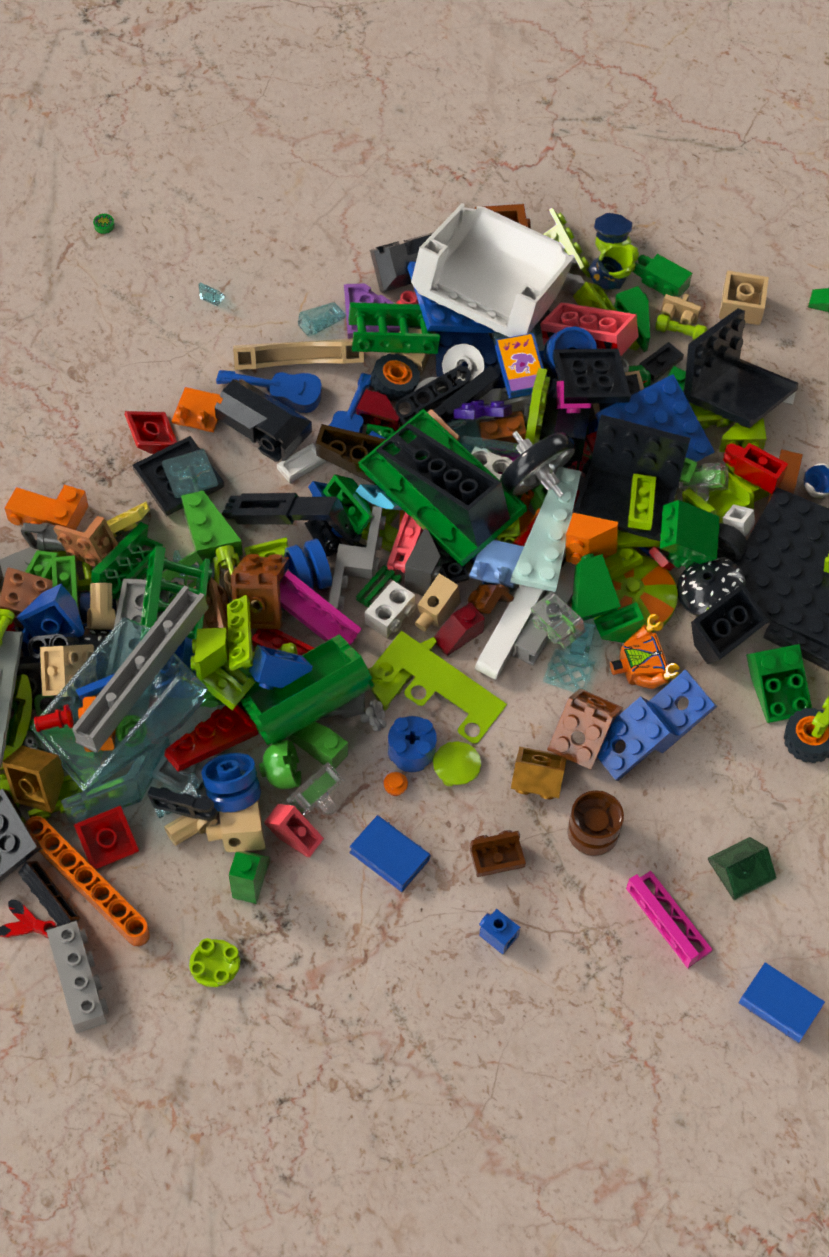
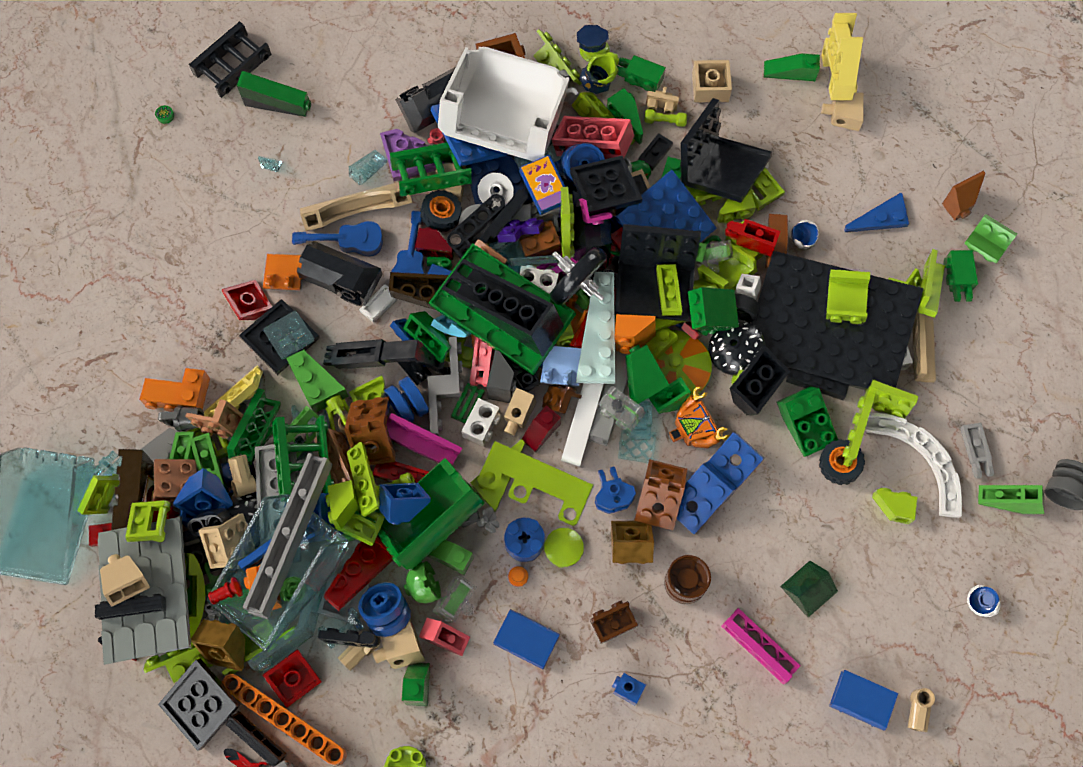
camera: 10 degrees left, 10 degrees up
(185, 165) = (220, 48): none -> black fence
(230, 224) = (272, 96): none -> slope
(529, 713) = (613, 491): none -> blue hinge
(785, 422) = (768, 188): none -> lime plate

